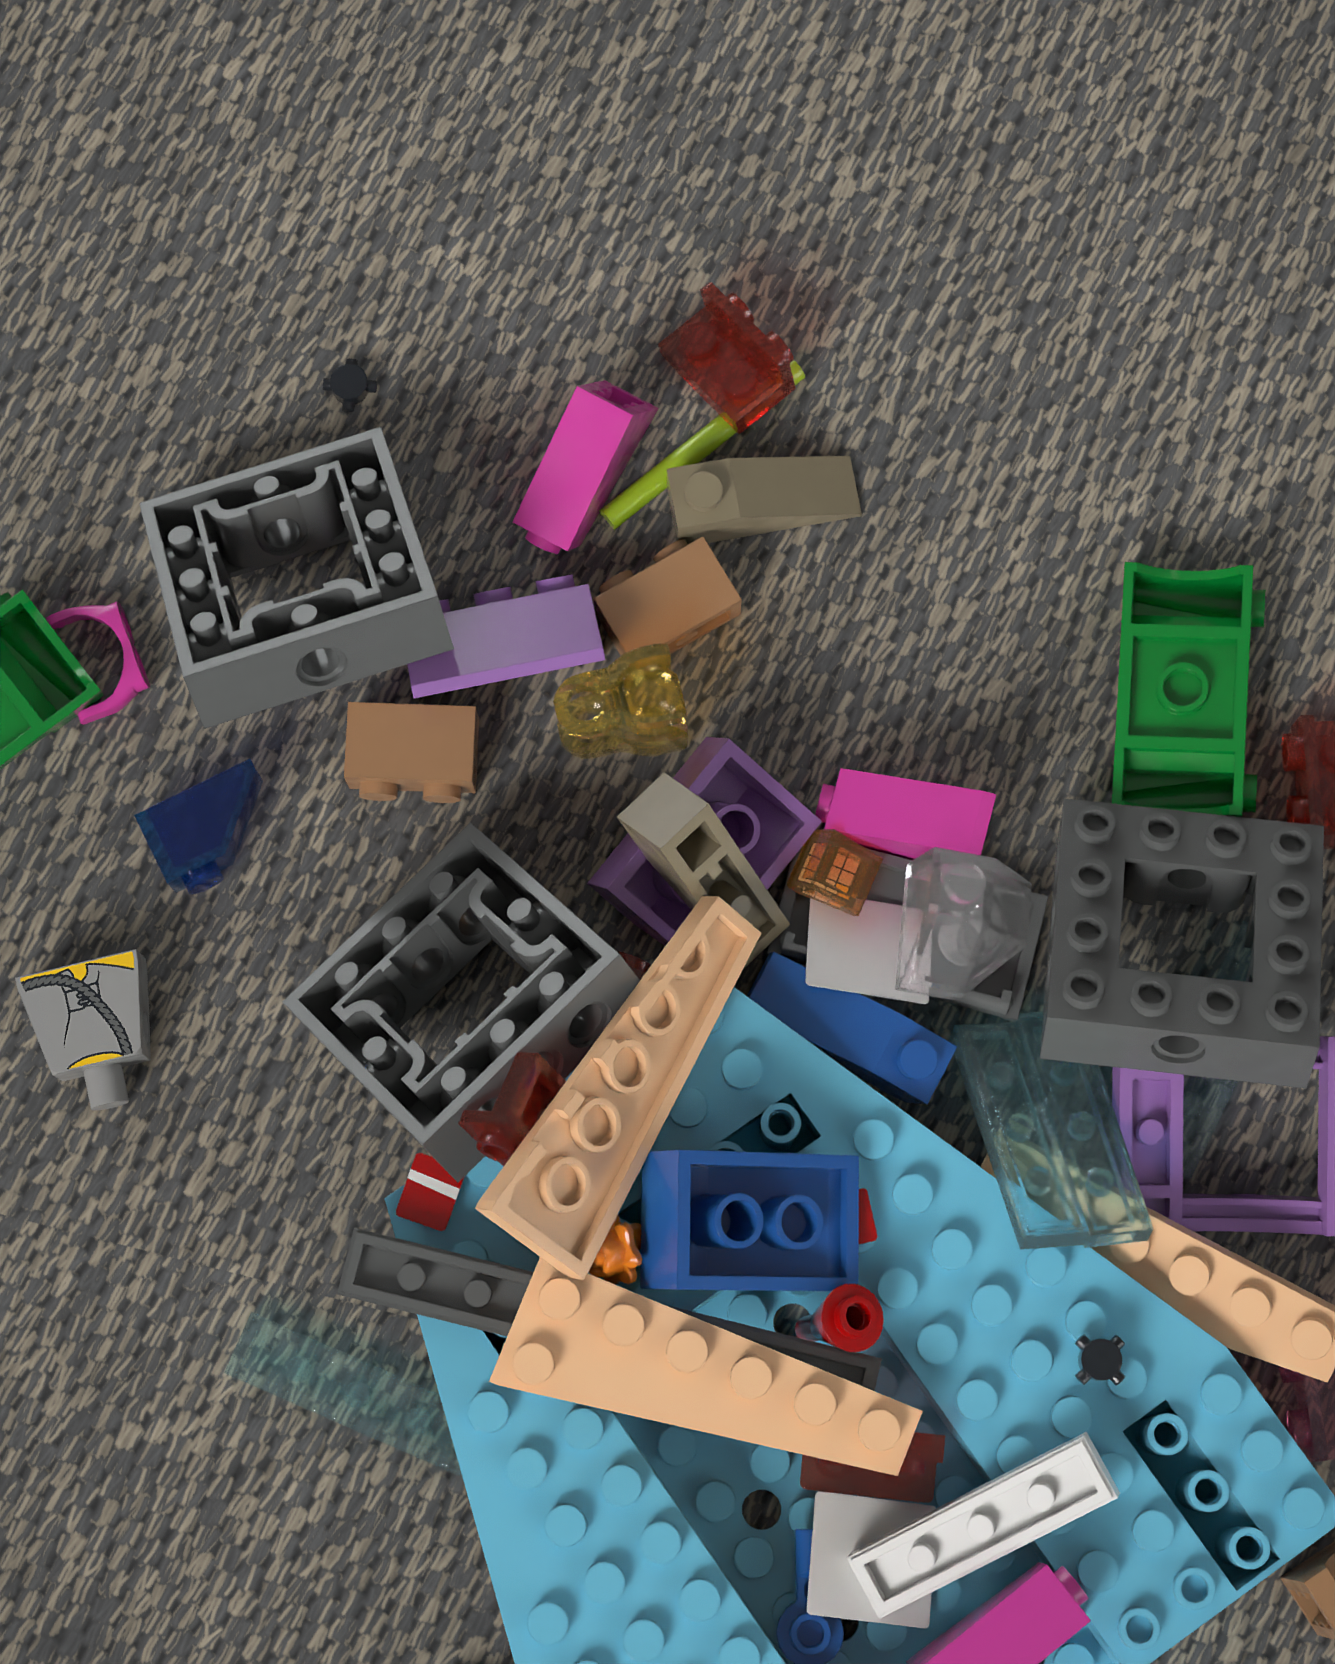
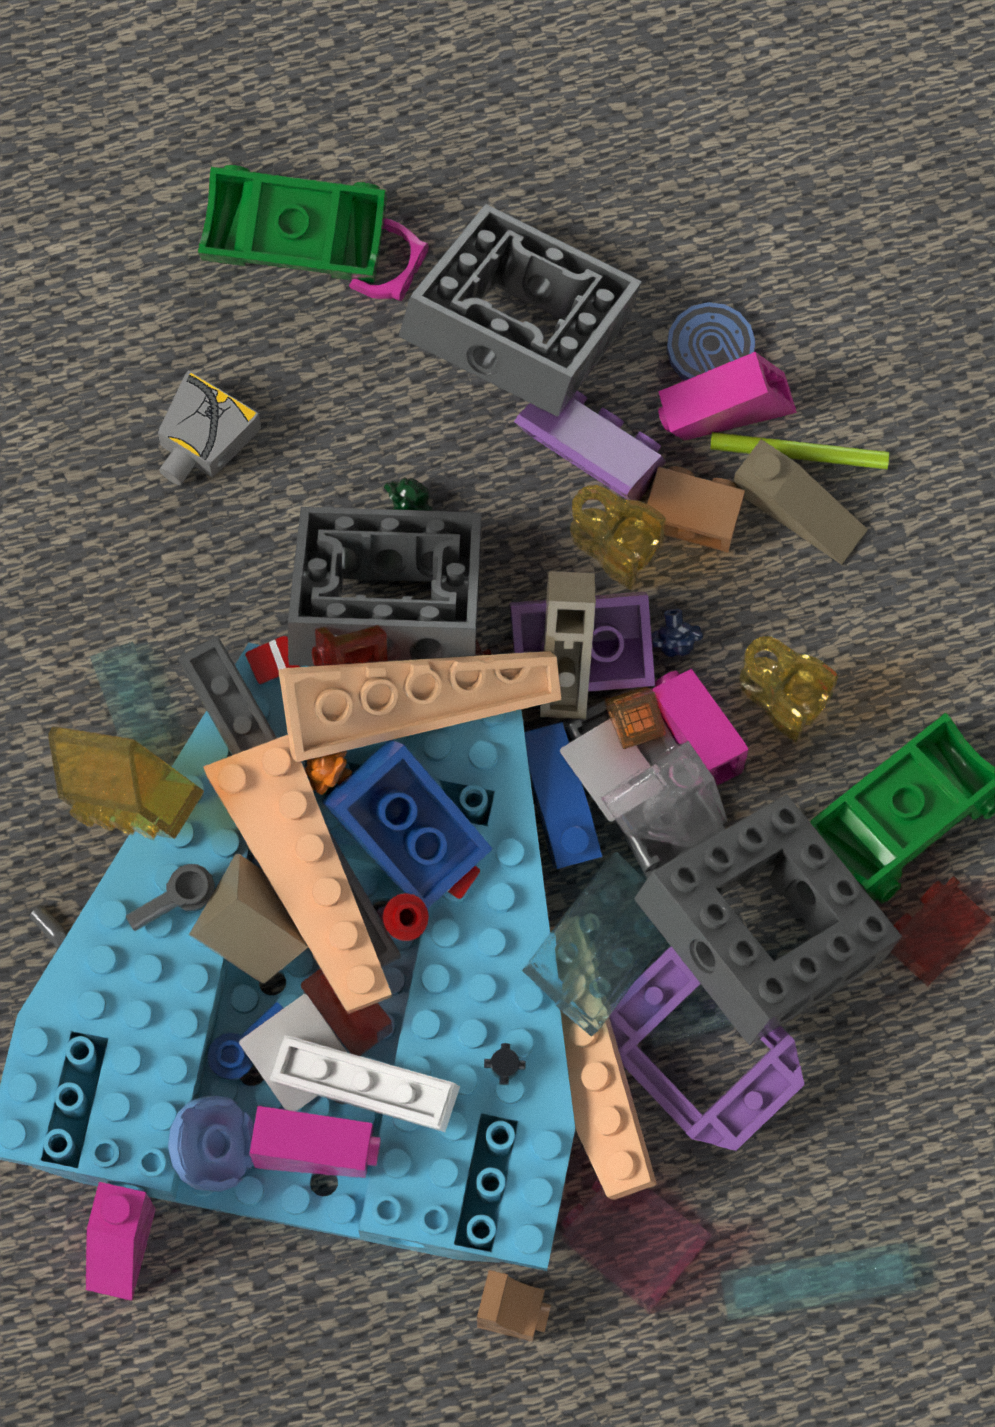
camera: 45 degrees right, 5 degrees down
(202, 827) = (353, 390): clear blue slope -> none
(349, 384) = (653, 250): black piece -> none
(374, 879) = (408, 495): none -> dark green plant
(411, 750) = (492, 454): medium nougat brick -> none
(423, 1488) = (120, 784): none -> clear yellow slope
(503, 422) = (708, 338): none -> tile
(601, 1518) = (187, 889): none -> dark grey plate
(695, 1486) = (248, 923): none -> dark tan slope
(730, 359) = (854, 422): clear red bracket -> none
(784, 748) = (676, 635): none -> dark blue plant
(960, 690) = (792, 689): none -> clear yellow piece

